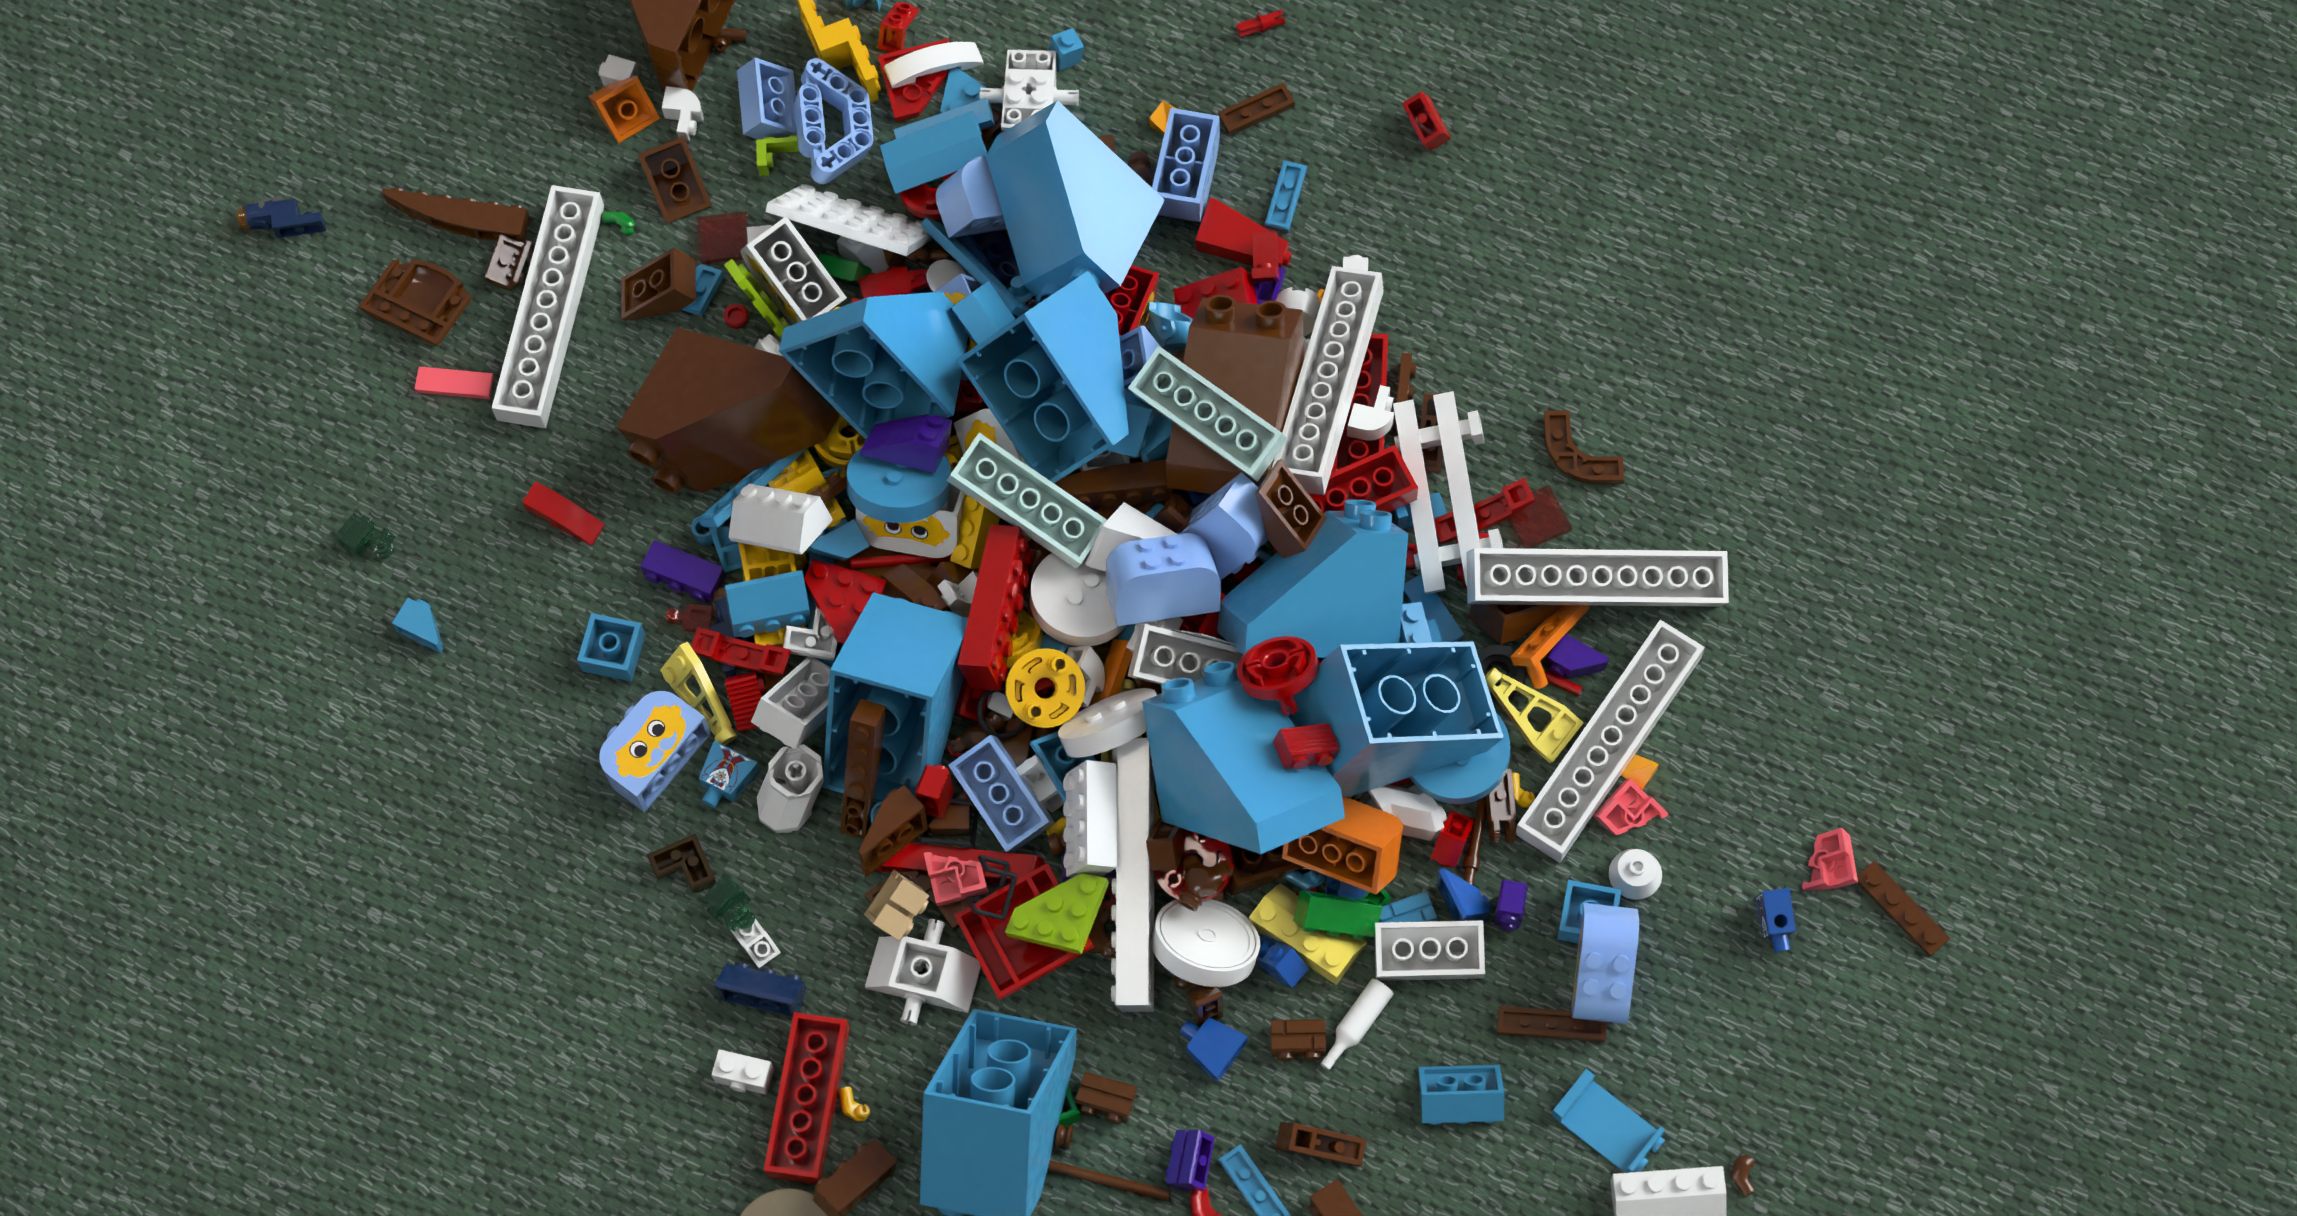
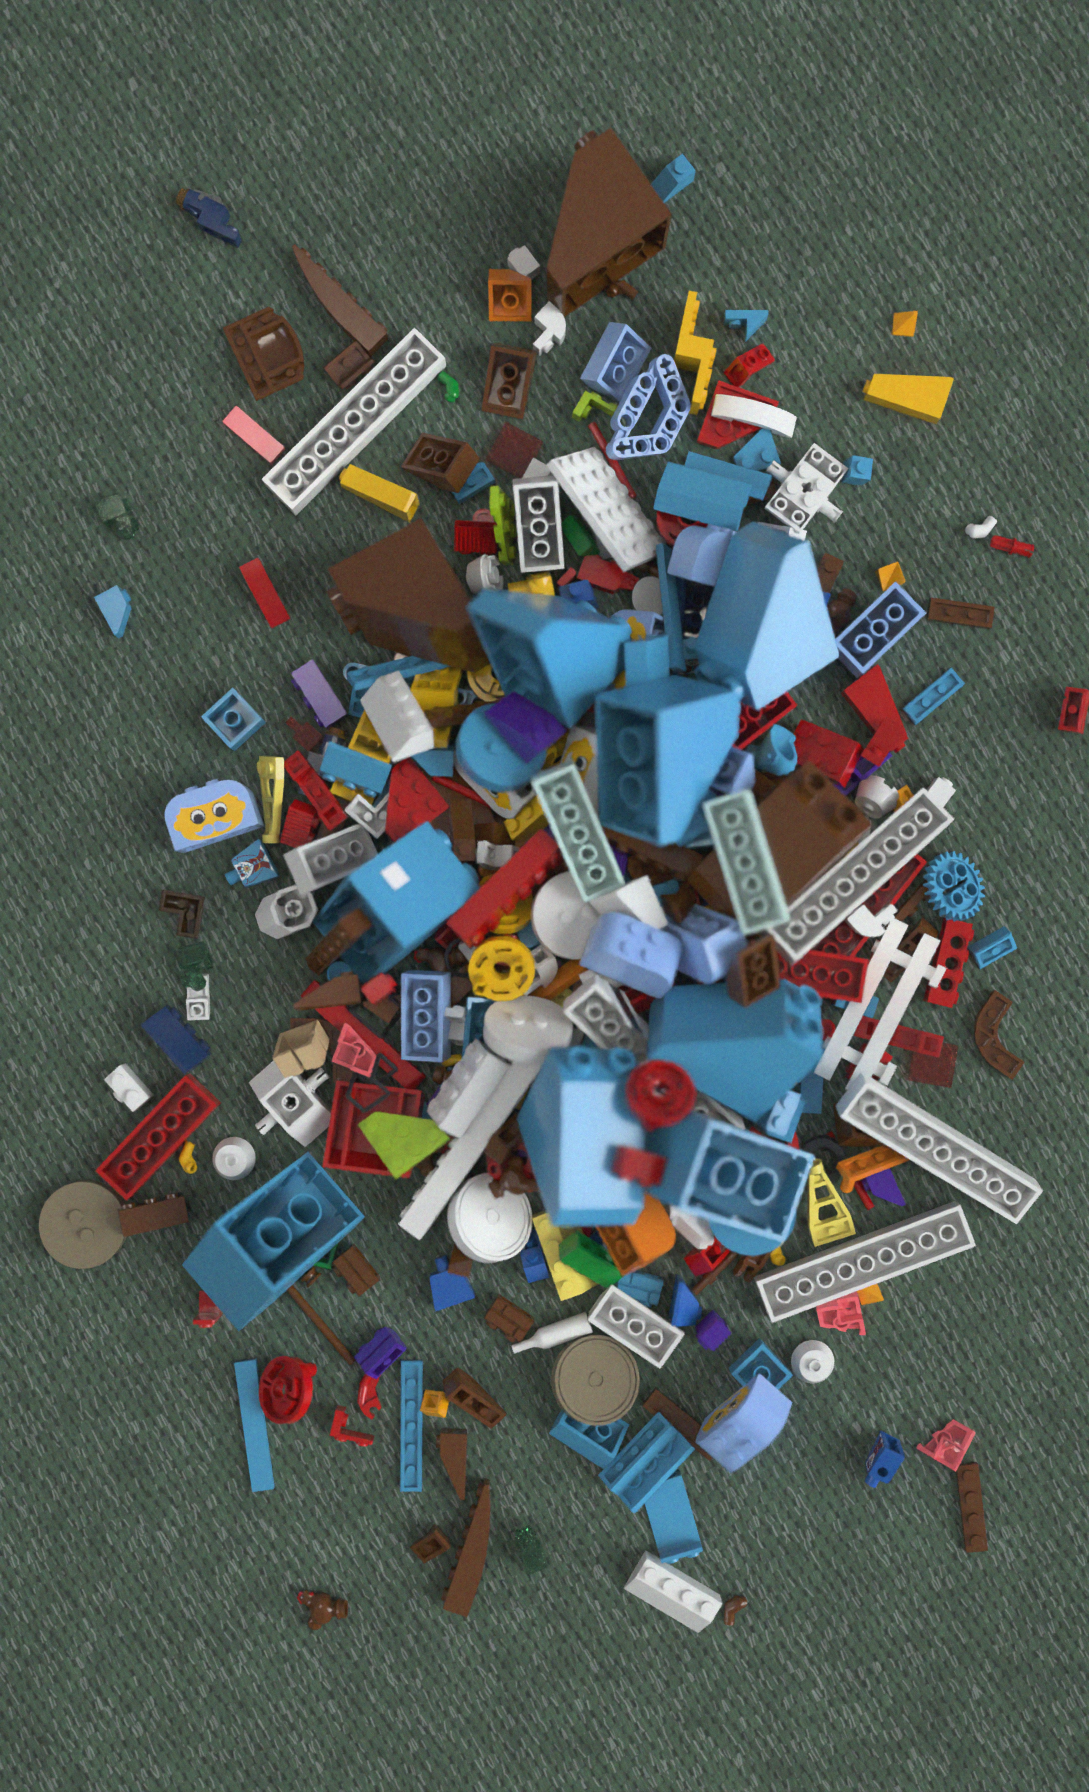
camera: 30 degrees right, 20 degrees up
(616, 351) = (380, 492): none -> yellow slope
(742, 328) = (475, 537): none -> red brick
(807, 179) = (613, 463): none -> red bar
(876, 647) = (395, 875): none -> white sticker
(901, 1072) = (234, 1158): none -> white cone
(1220, 29) = (981, 530): none -> white arm
(1284, 1178) = (434, 1403): none -> light orange slope
(1415, 333) = (962, 899): none -> dark azure gear
(1429, 1034) = (595, 1380): none -> dark tan brick
(1471, 380) = (955, 975): none -> red brick
(1513, 377) = (992, 947): none -> dark azure slope
(1540, 1078) = (646, 1462): none -> dark azure slope

